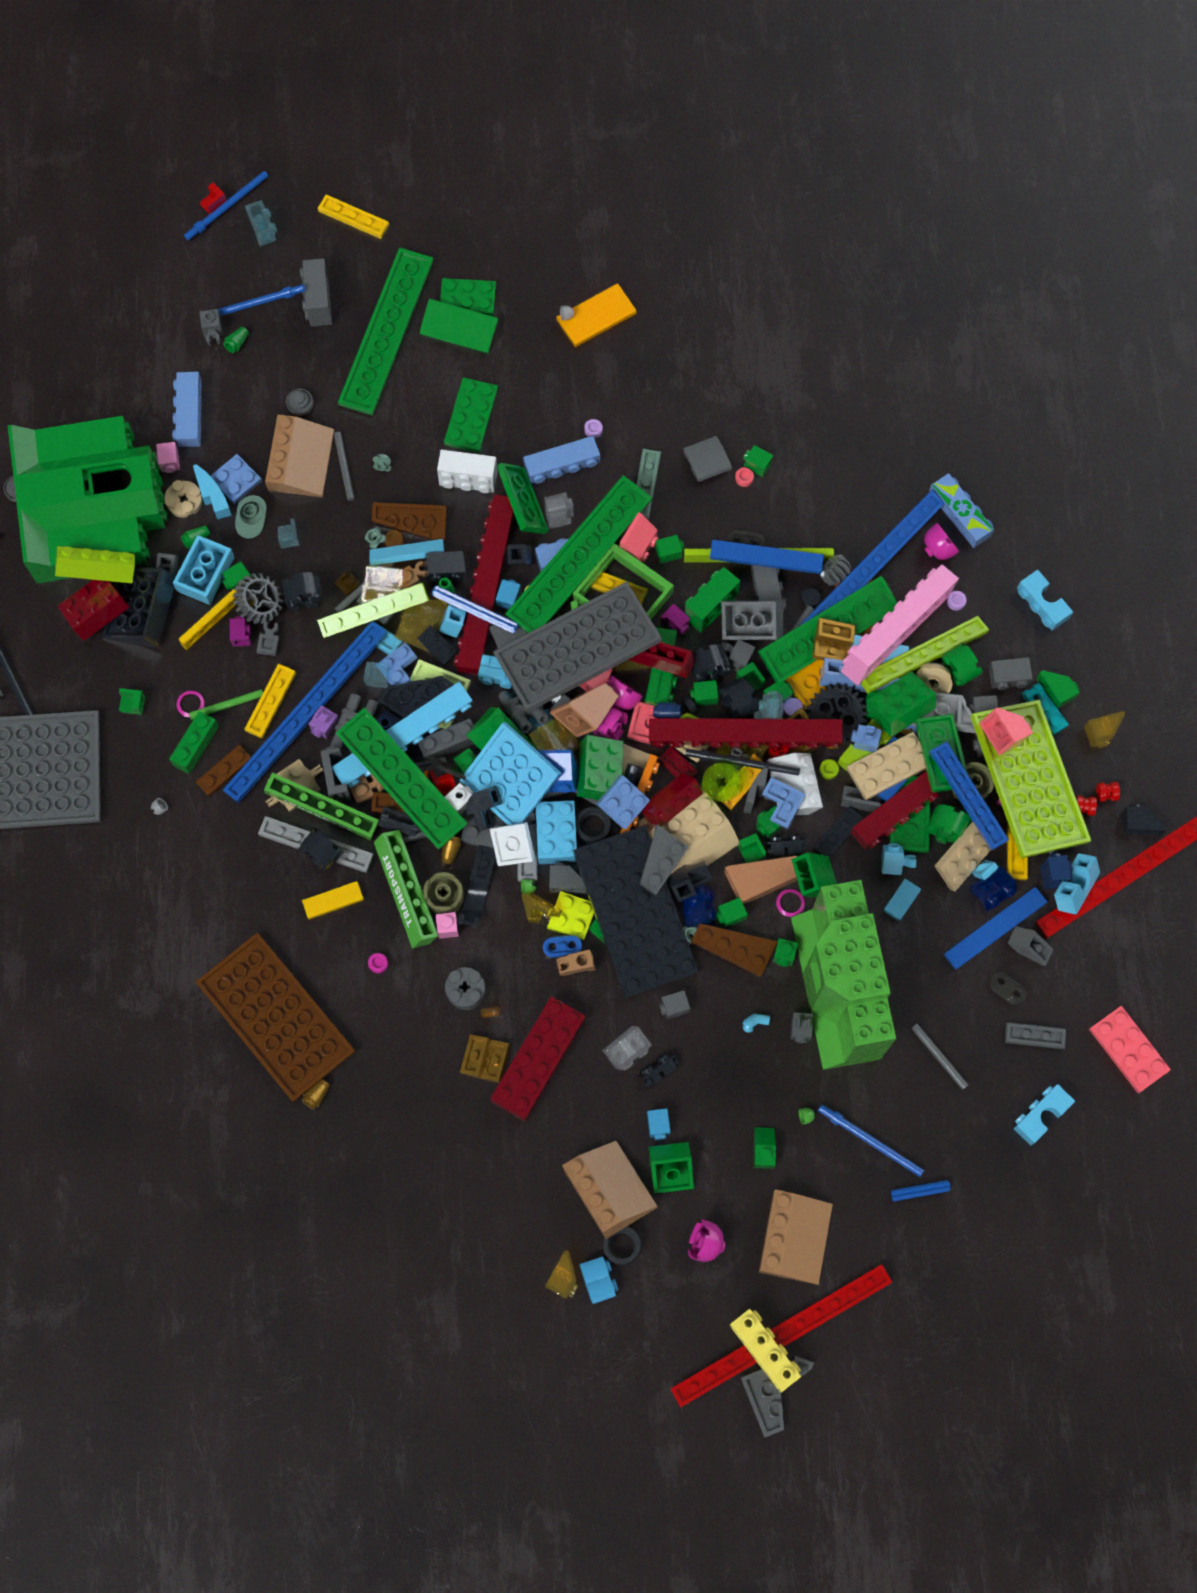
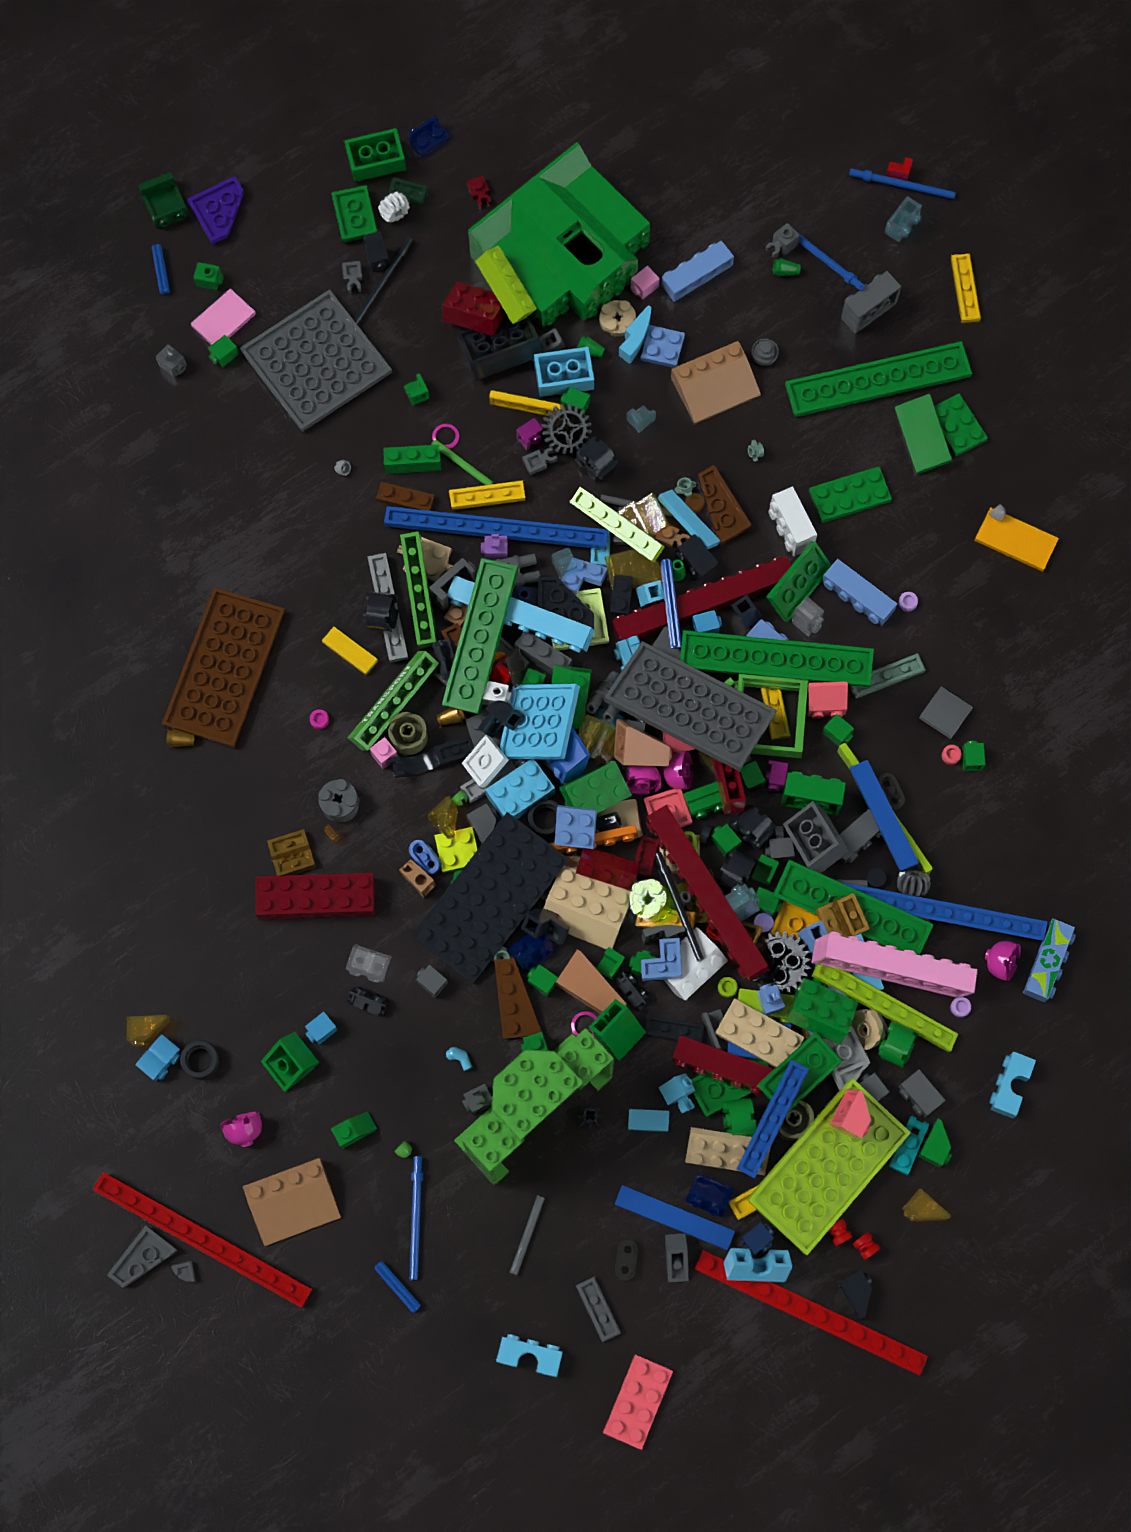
camera: 60 degrees right, 0 degrees up
(250, 516) = (635, 378): sand green piece -> none
(344, 467) = (732, 423): dark grey bar -> none
(347, 583) = (630, 490): dark brown tile -> none
(609, 1188) = (239, 1019): medium nougat slope -> none
(662, 858) = (547, 890): dark grey wing -> none
(667, 710) = (685, 816): dark blue brick -> none
(765, 1351) = (177, 1231): light yellow brick -> none
(985, 869) = (721, 1176): medium azure tile -> none

